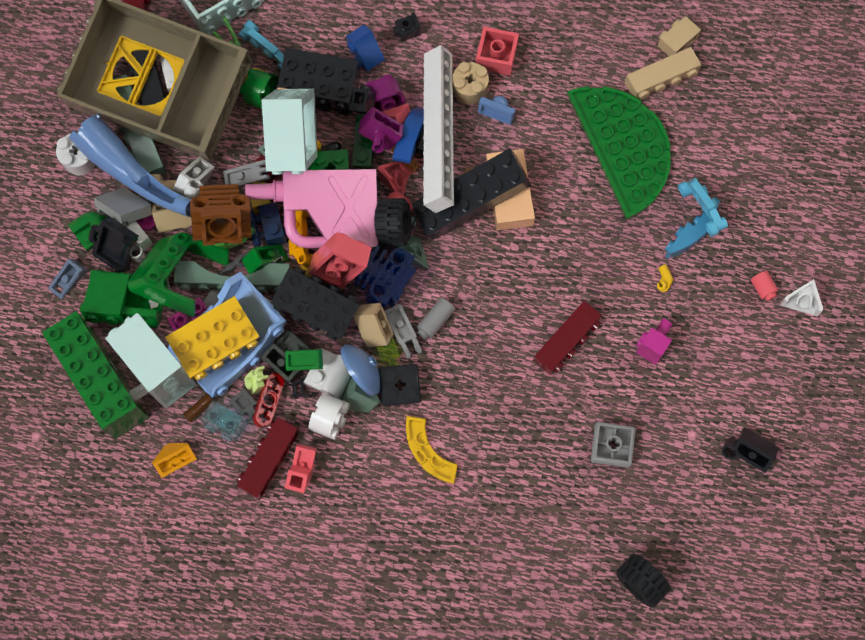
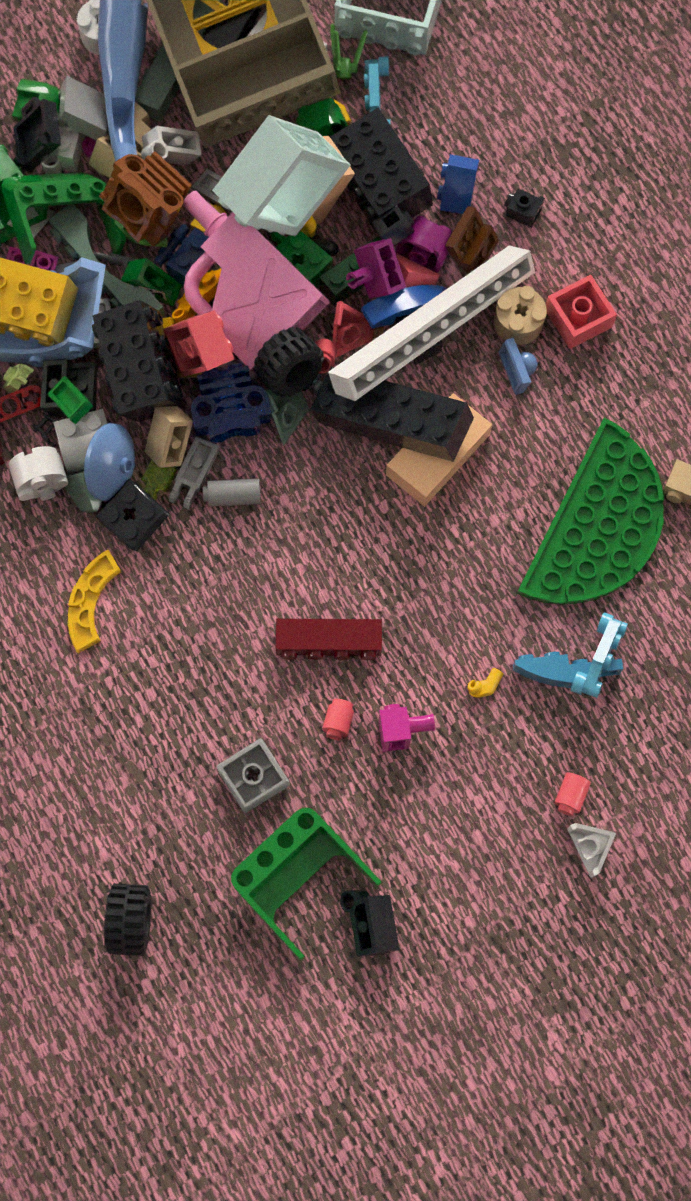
camera: 45 degrees right, 0 degrees up
(404, 70) = (471, 241): none -> reddish brown slope
(618, 372) = (338, 719): none -> coral brick
(679, 466) = (287, 863): none -> green windscreen

